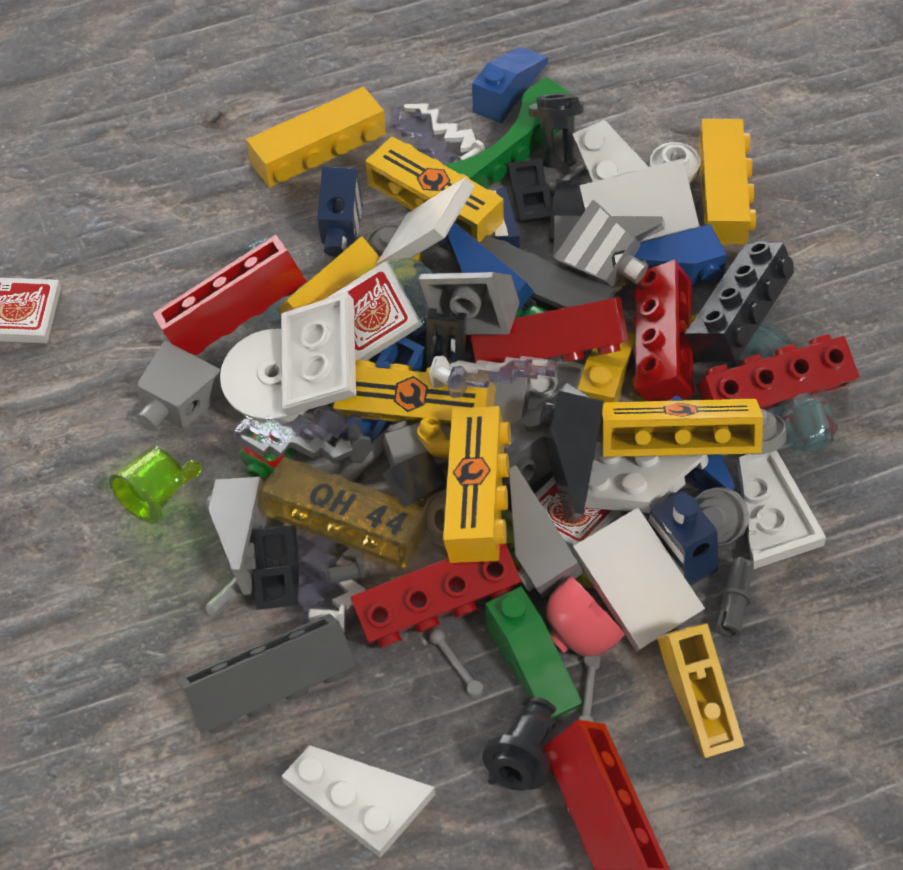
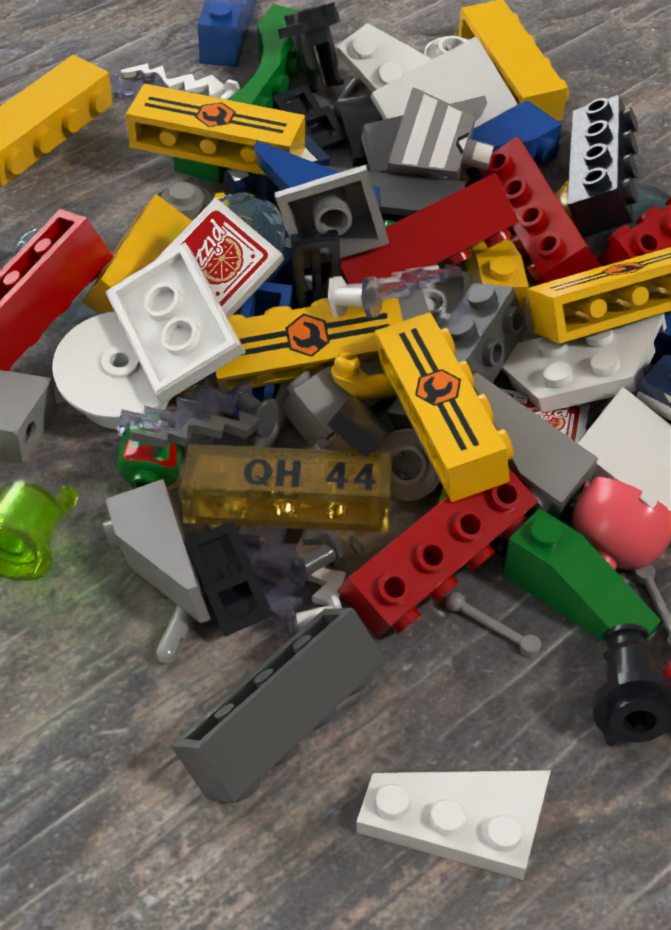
camera: 25 degrees left, 5 degrees down
(338, 219) = (111, 197): dark blue torso -> none
(428, 222) = (235, 154): white tile -> none
(571, 442) = (523, 342): black slope -> none

